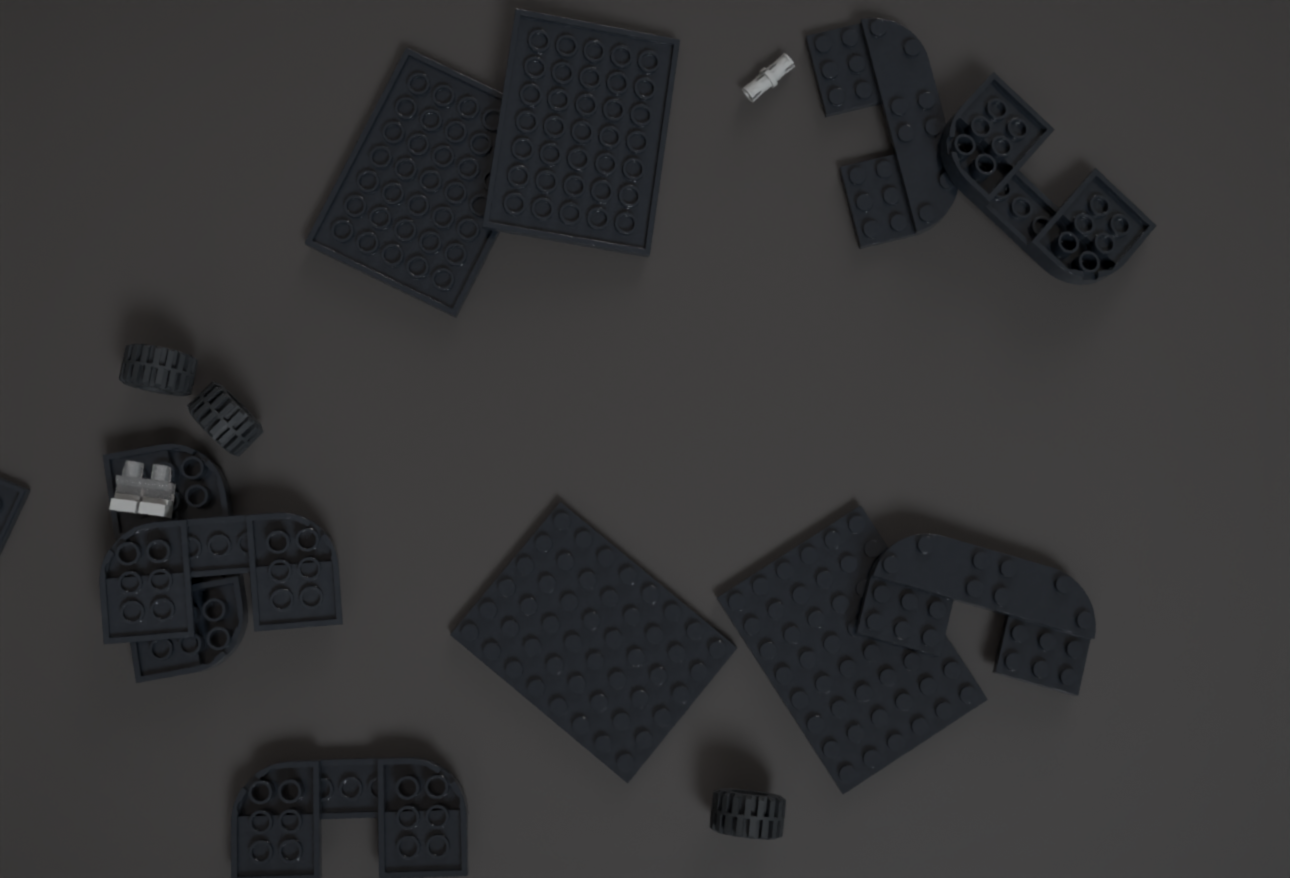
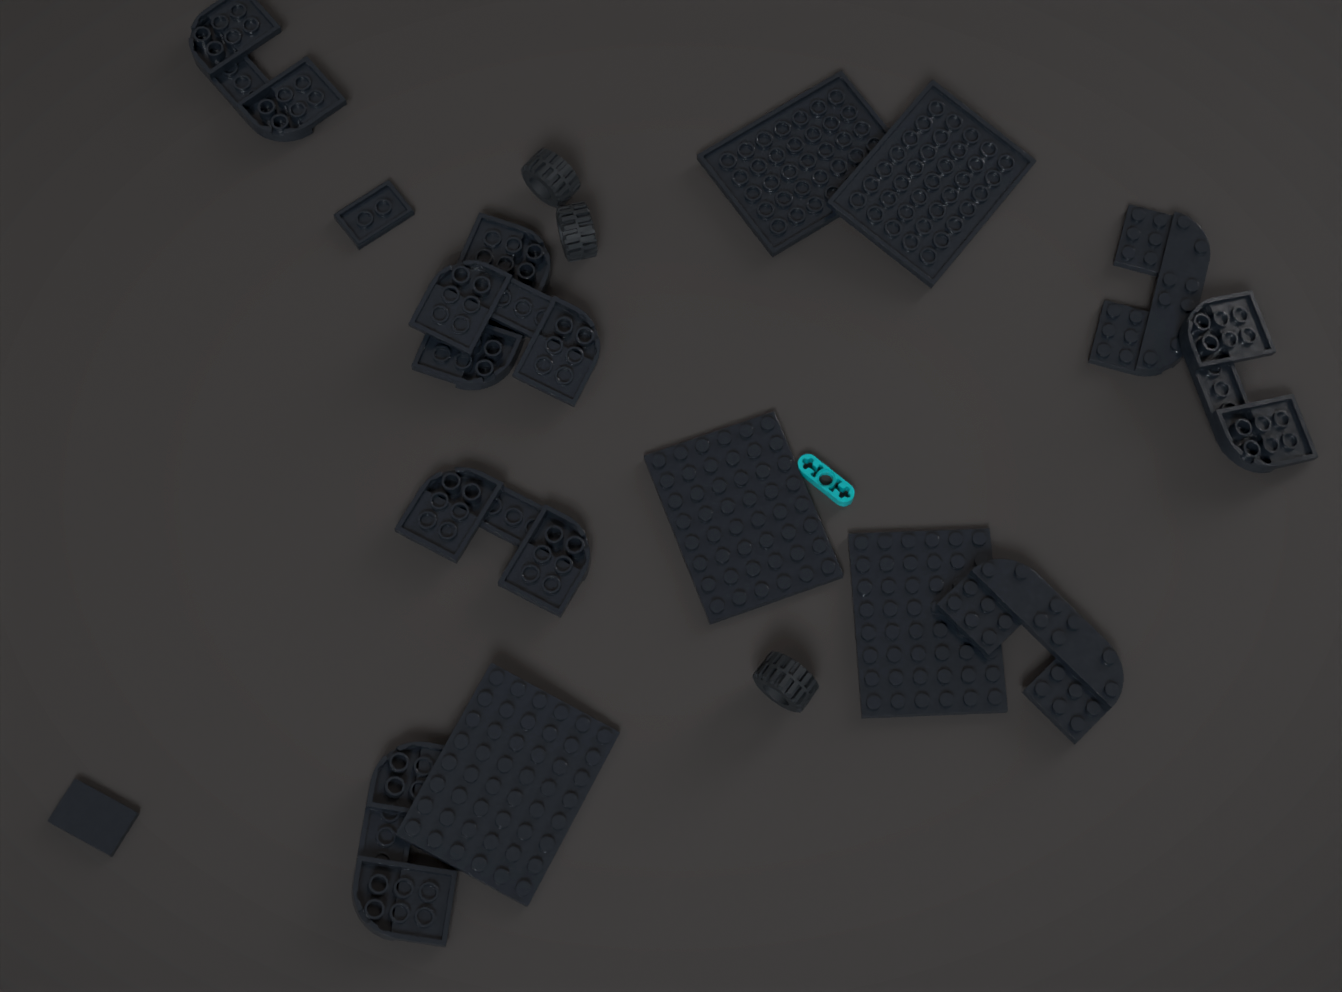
camera: 30 degrees right, 15 degrees down
(143, 495) = (492, 247): hips -> none
(667, 540) = (826, 489): none -> teal beam
(768, 77) = (1086, 217): light grey pin -> none

